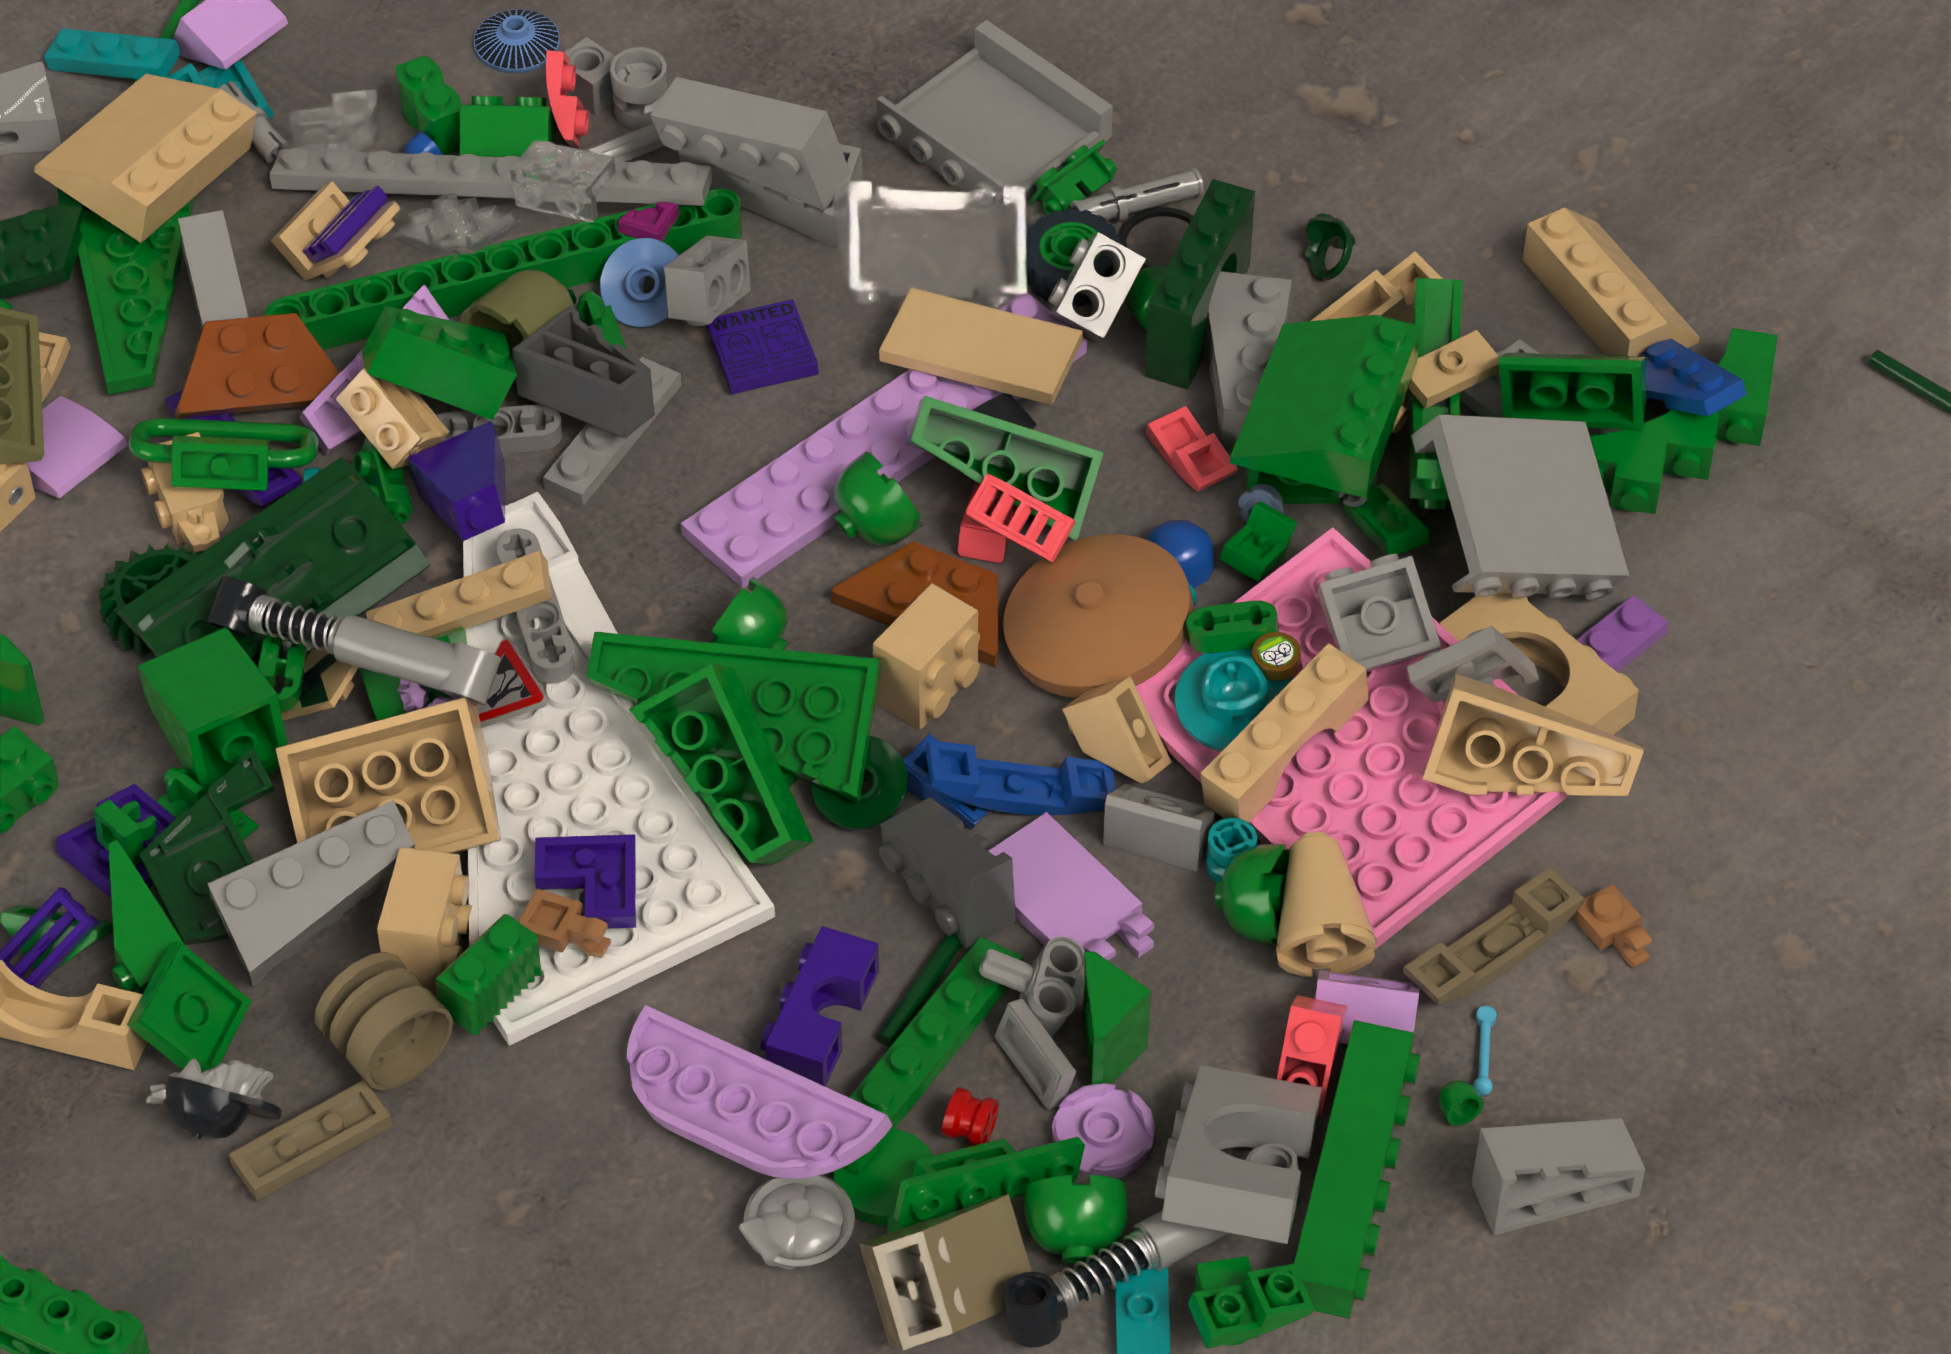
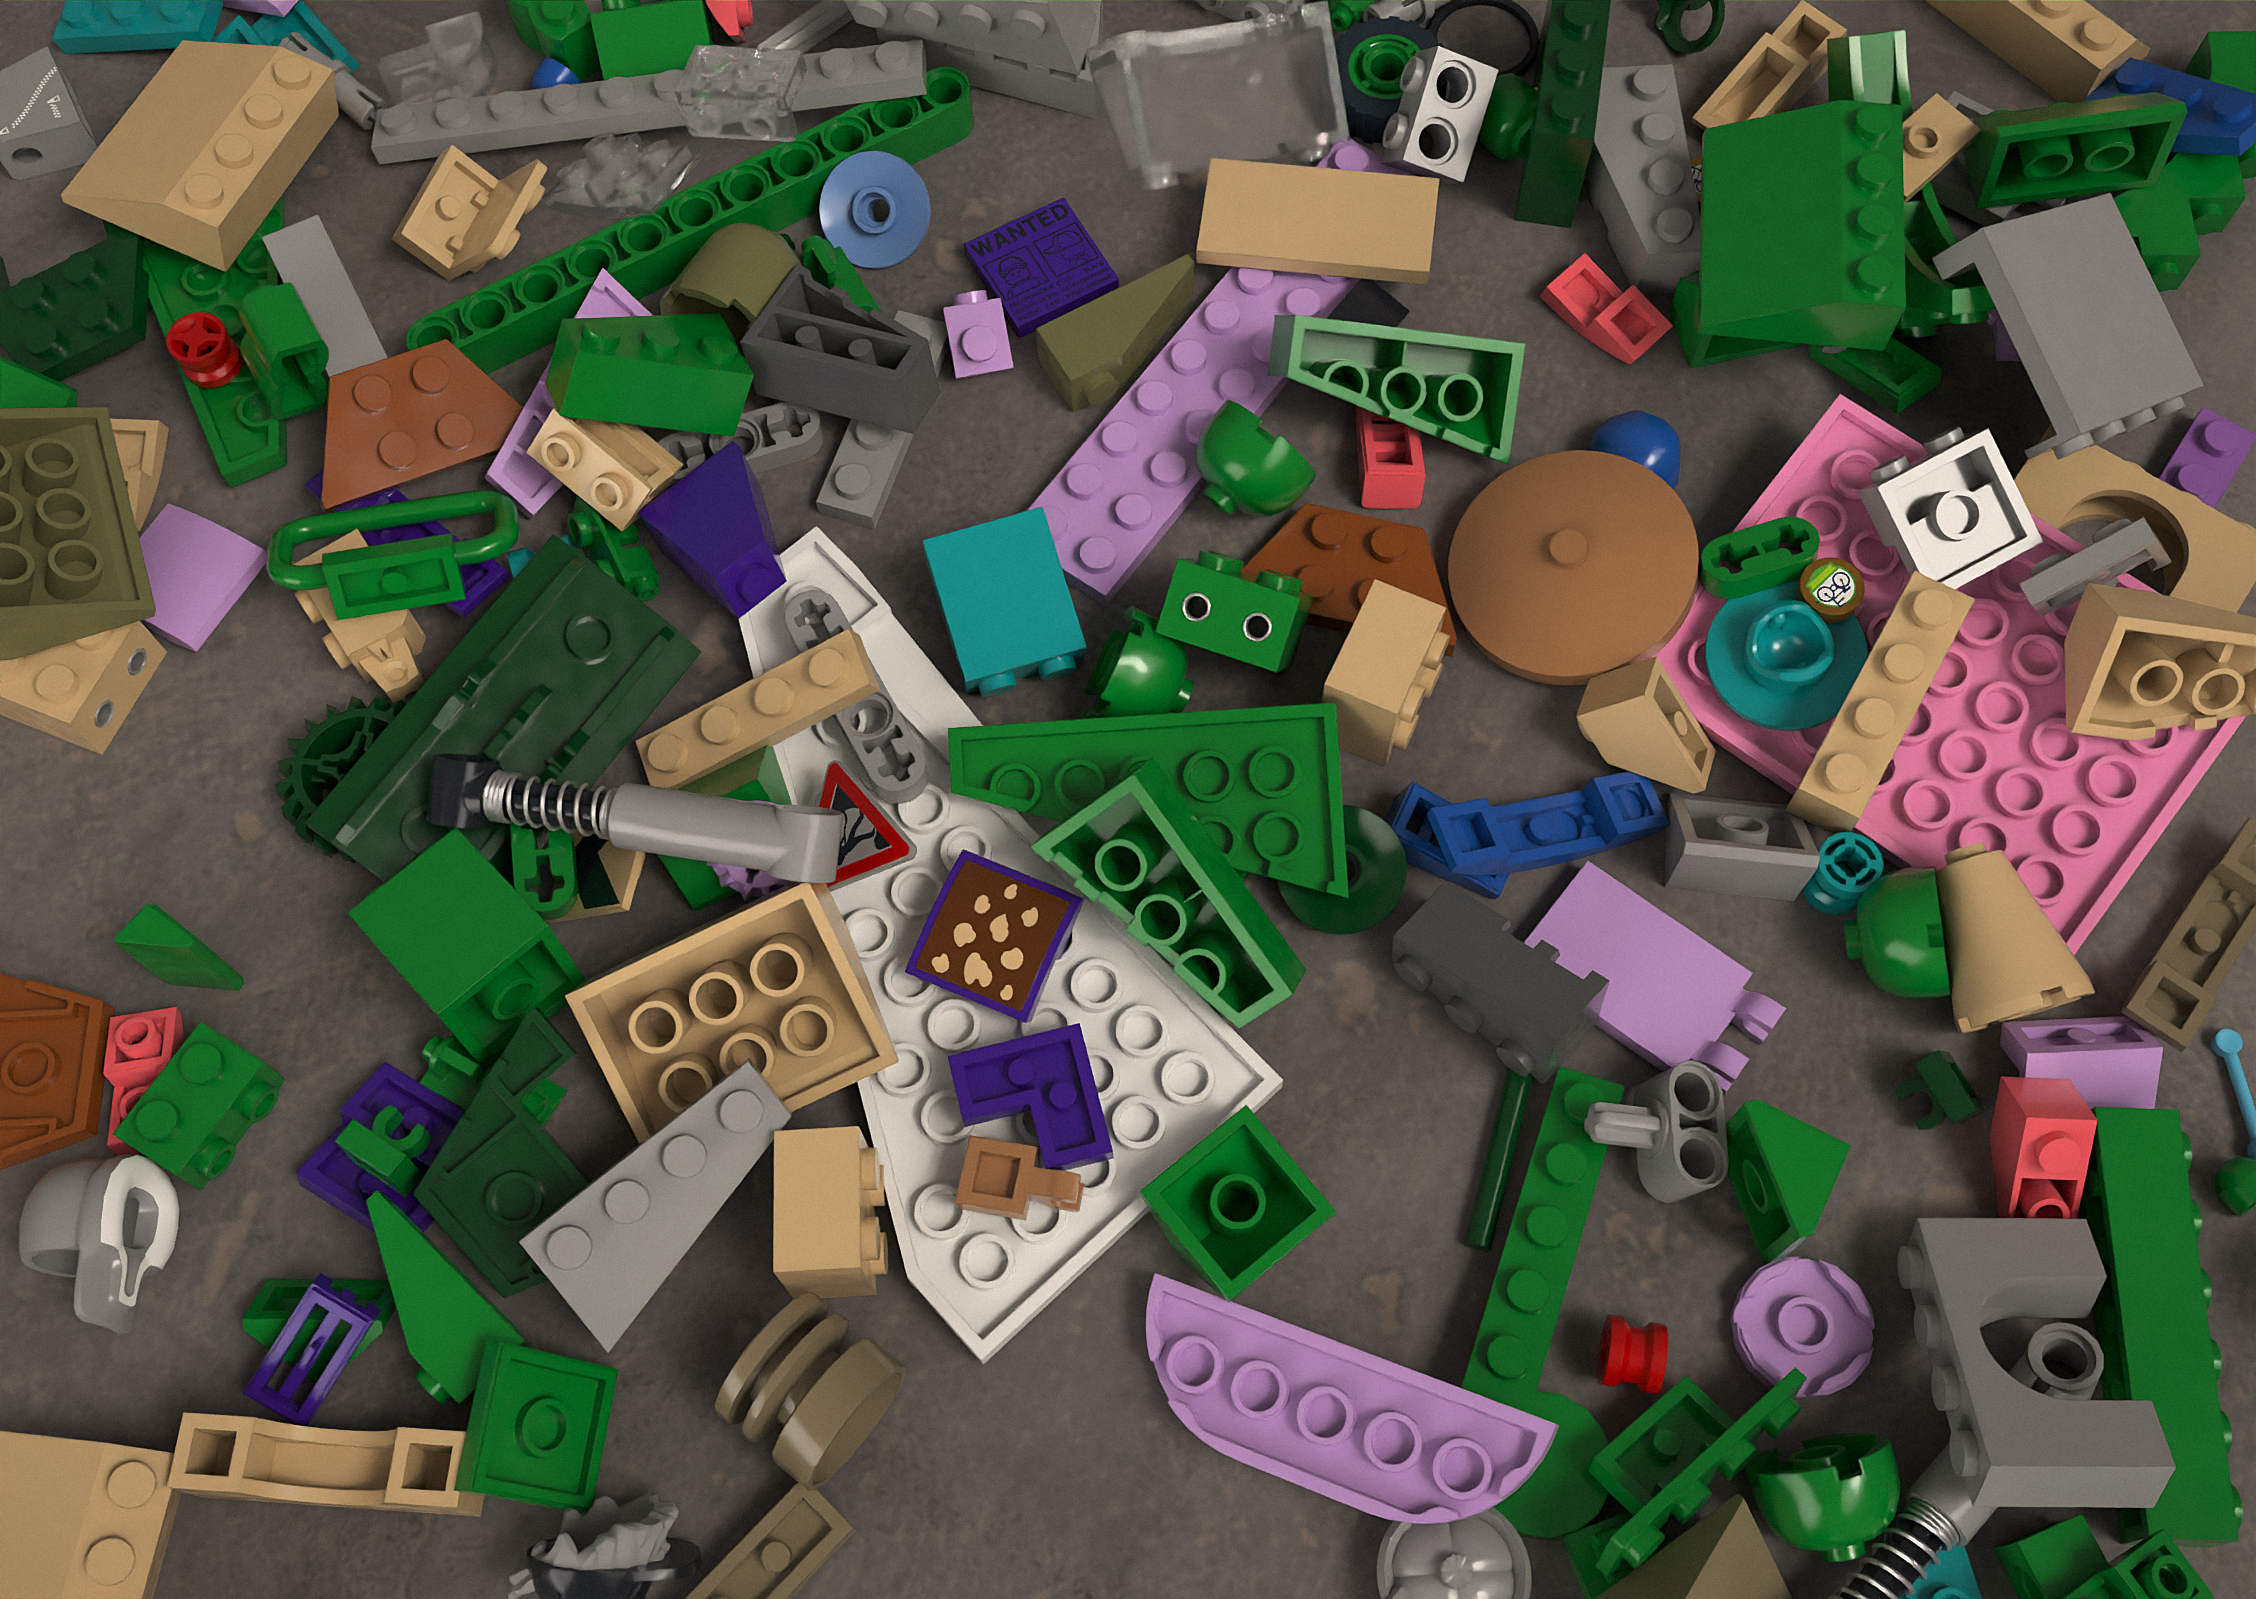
camera: 10 degrees left, 15 degrees up
(114, 293) = (204, 350): none -> red wheel
(174, 301) = (284, 350): none -> green brick
(345, 224) = (482, 200): dark purple tile -> none
(489, 974) = (938, 1287): green brick -> none
(591, 773) = (994, 935): none -> slope
(649, 222) = (865, 129): magenta tile -> none
(662, 564) = (1005, 602): none -> teal brick
(697, 384) = (977, 335): none -> lavender bracket
(707, 279) = (956, 193): light grey brick -> none
(712, 966) = (1235, 1204): none -> green slope
(799, 402) = (1106, 340): none -> olive slope
(831, 594) = (1234, 611): none -> green piece
(832, 972) = (1377, 1283): dark purple arch -> none
(985, 501) = (1397, 439): coral slope -> none
(1035, 1054) = (1688, 1236): light grey tile -> none
(1258, 493) = (1718, 371): sand blue plate -> none
(1259, 1001) = (1947, 1088): none -> dark green tile
(1260, 543) = (1735, 423): green bracket -> none

